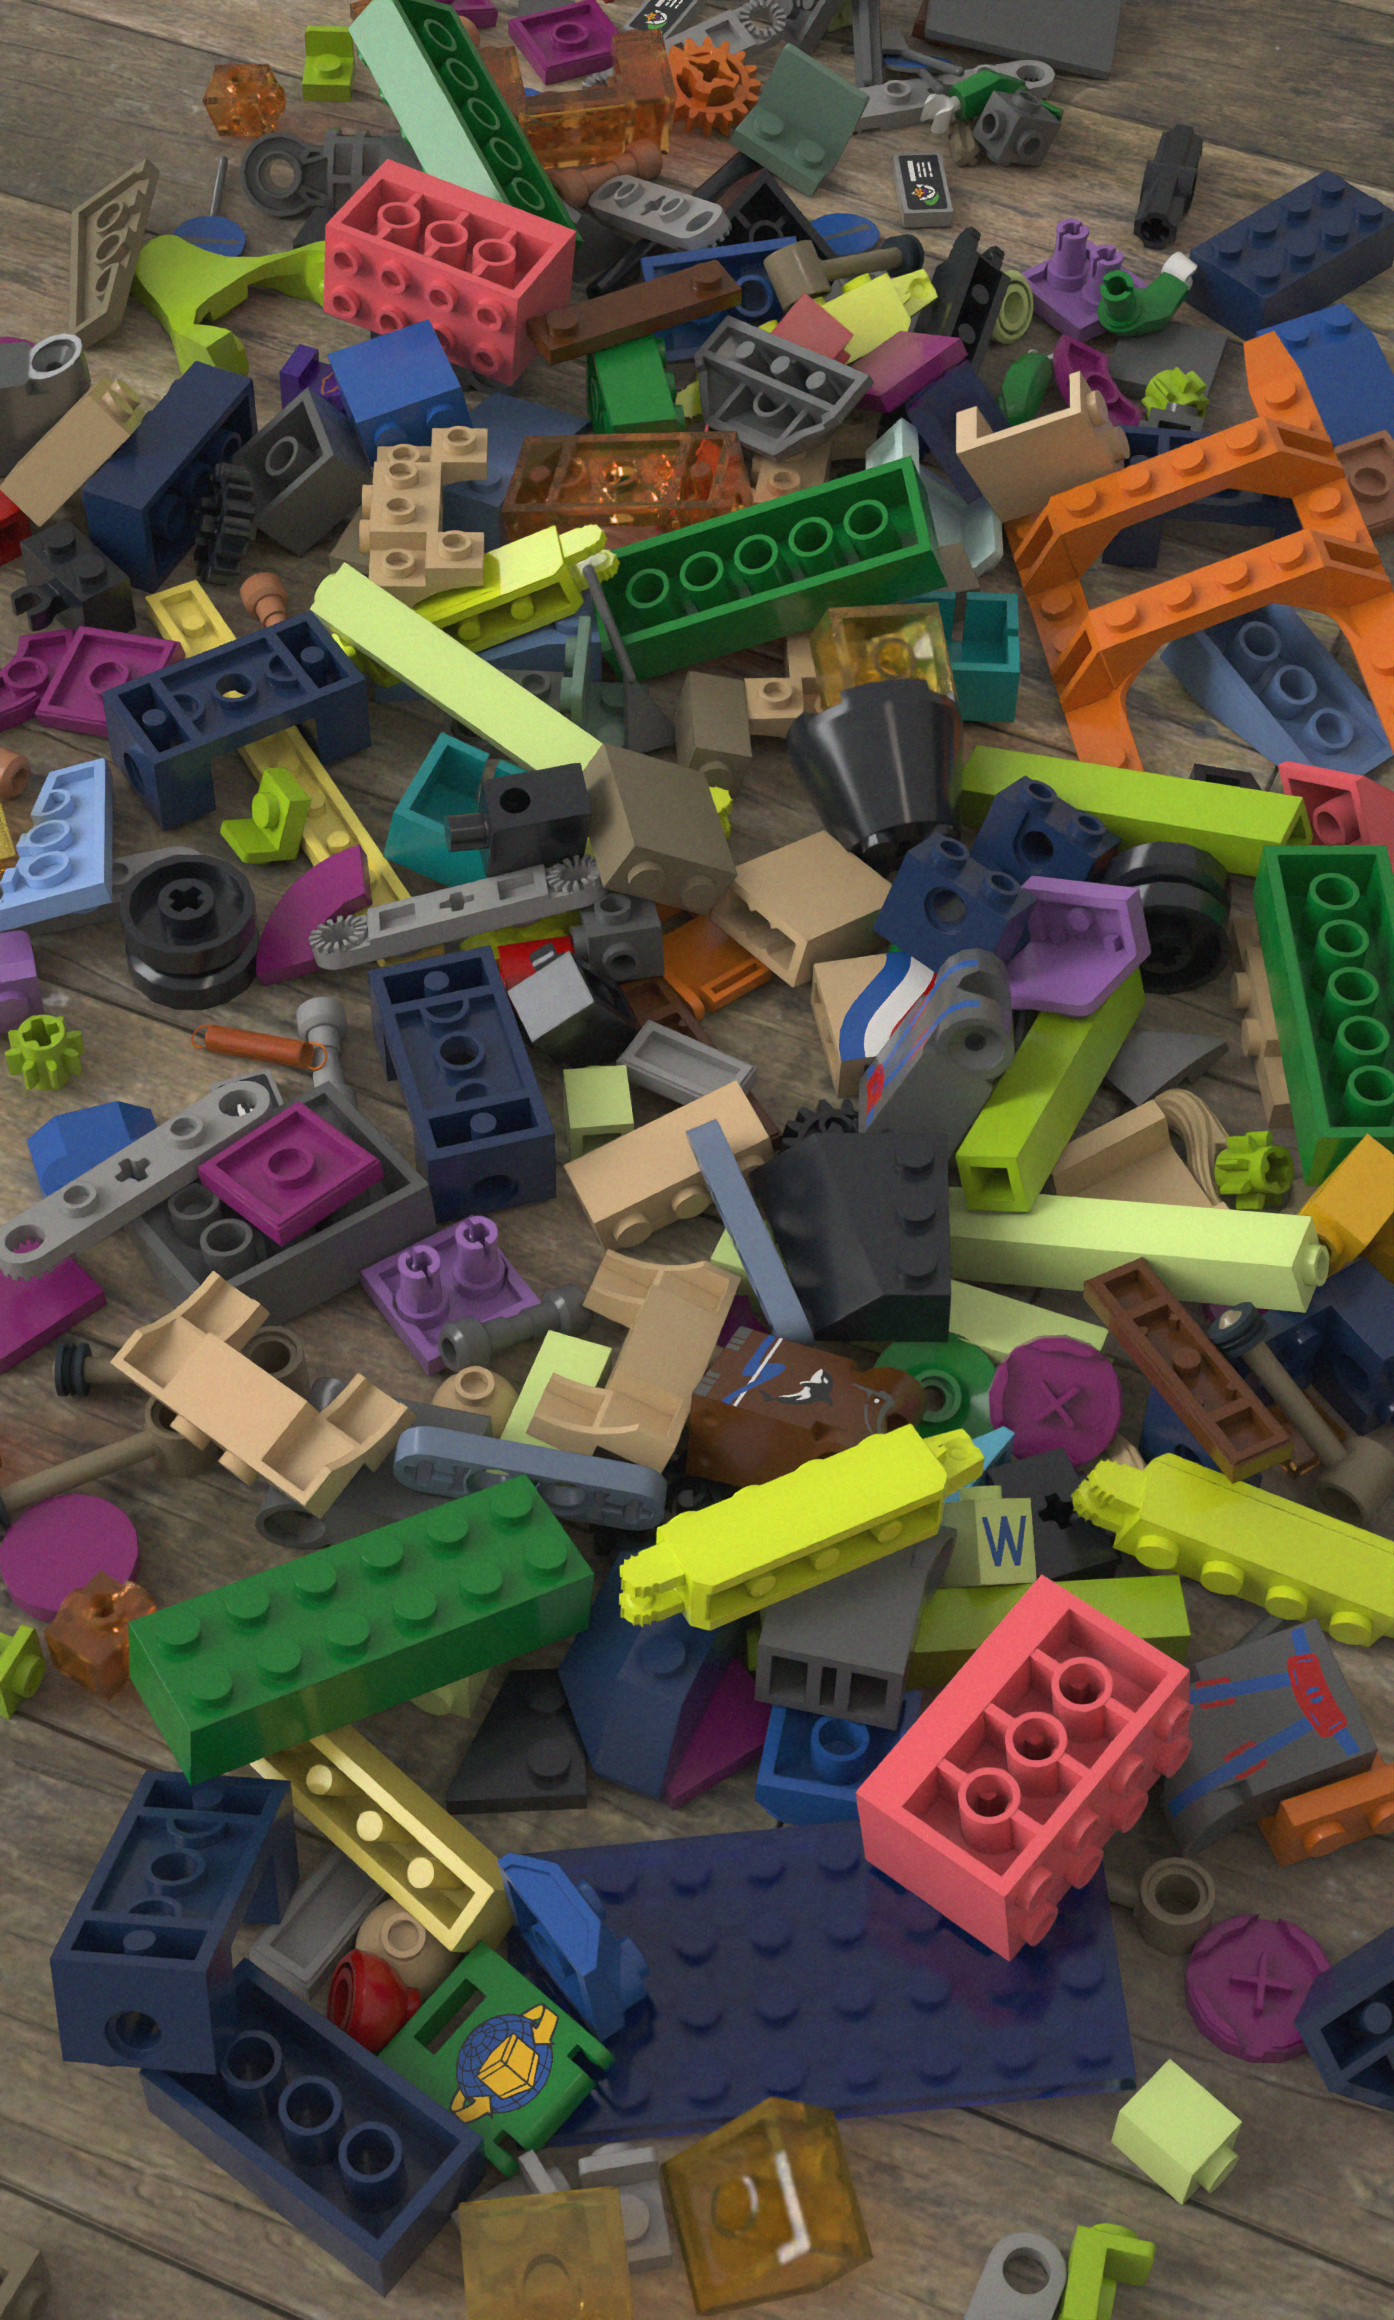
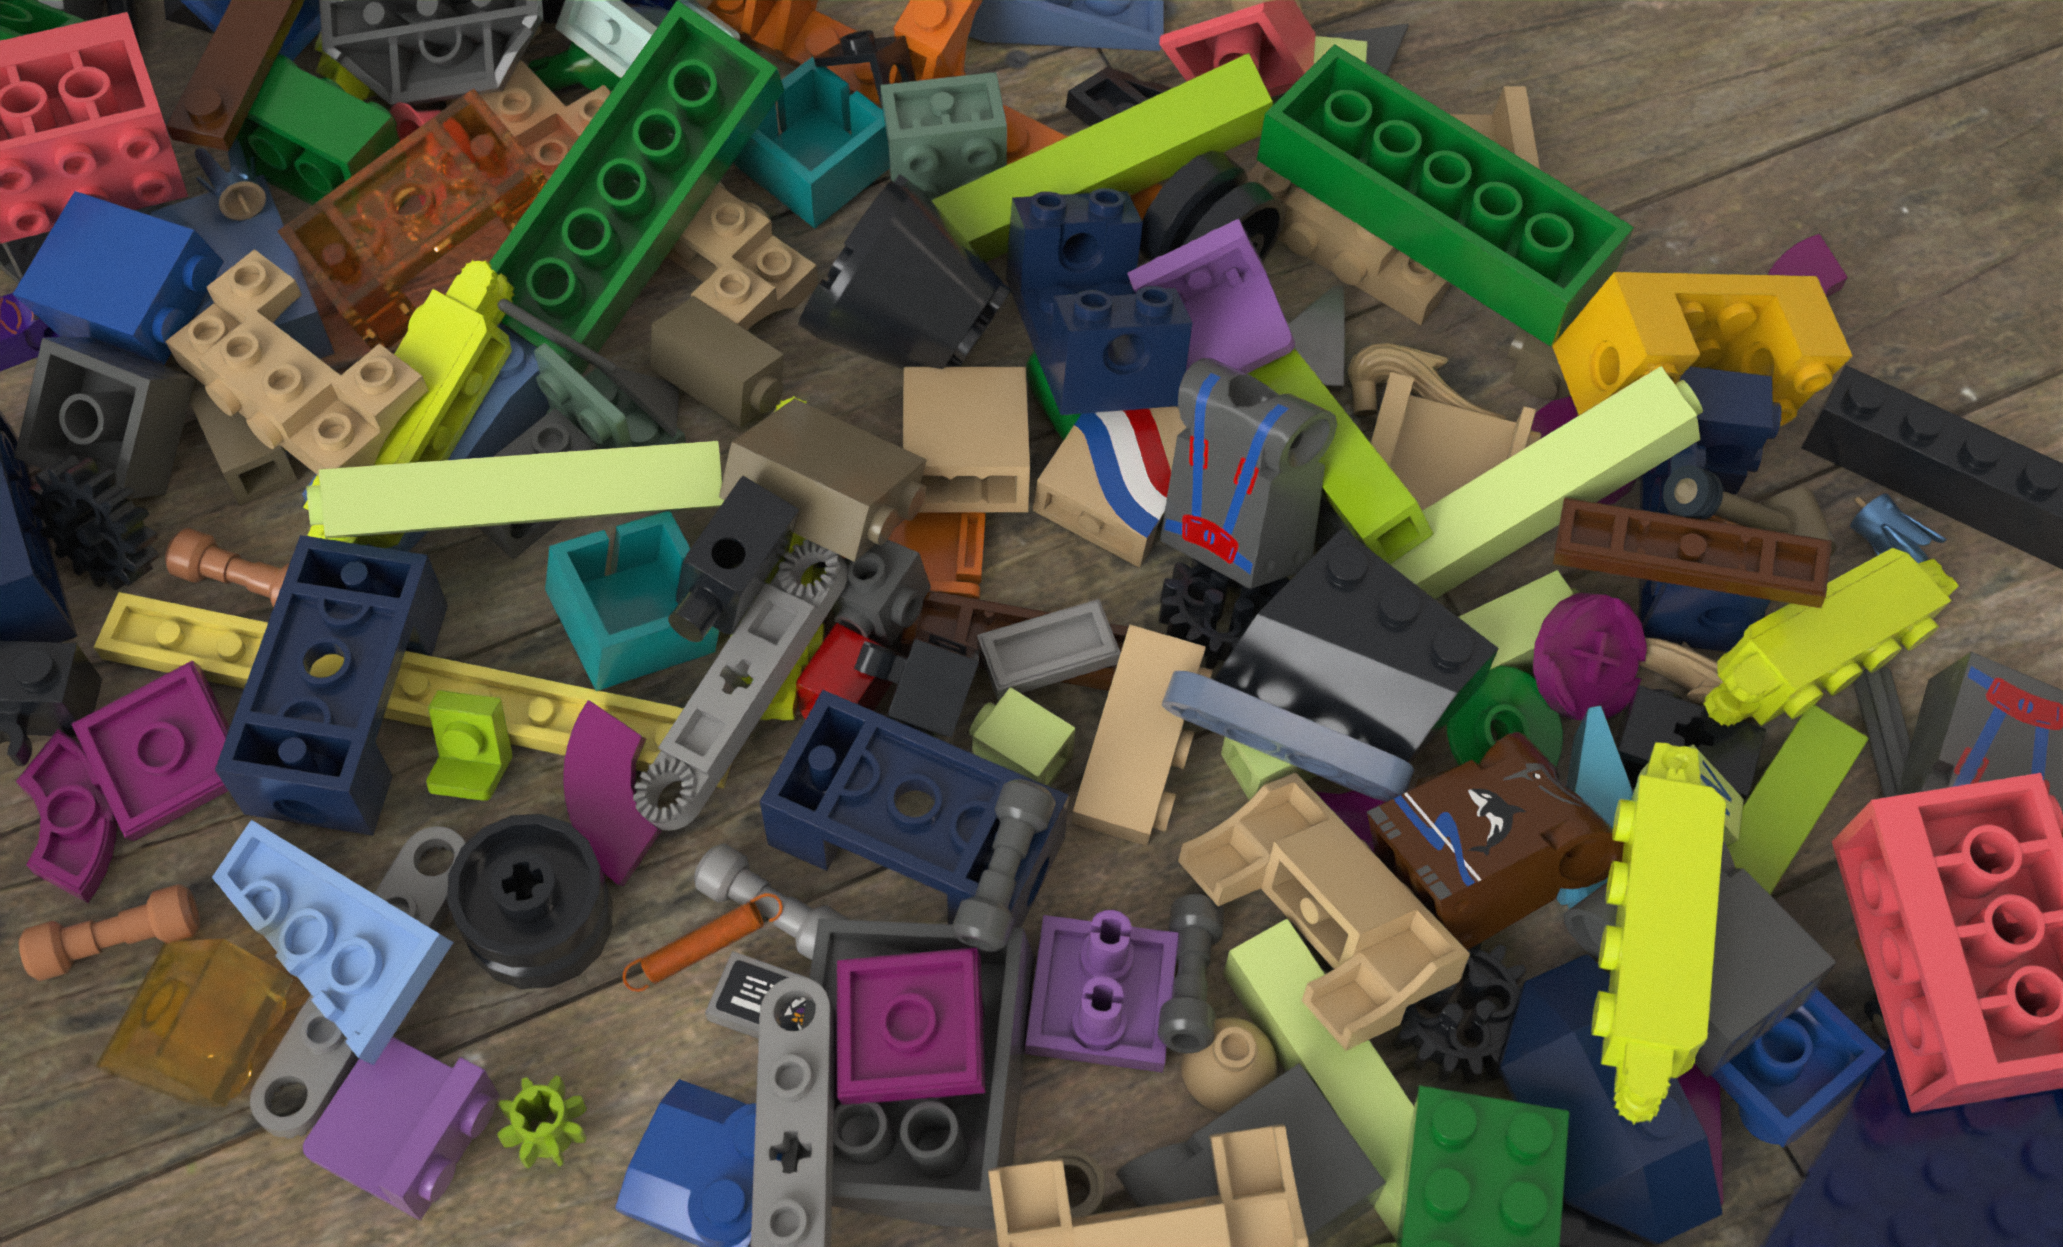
camera: 50 degrees left, 10 degrees up
(503, 1106) = (985, 917): none -> dark grey piece
(549, 407) = (236, 190): none -> piece
(607, 1494) = (1396, 1085): sand blue beam -> none
(877, 645) = (803, 200): clear yellow slope -> none
(1040, 702) = (945, 130): none -> sand green bracket
(1051, 618) = (880, 52): none -> black bracket
(1254, 1170) = (1483, 365): lime gear -> none

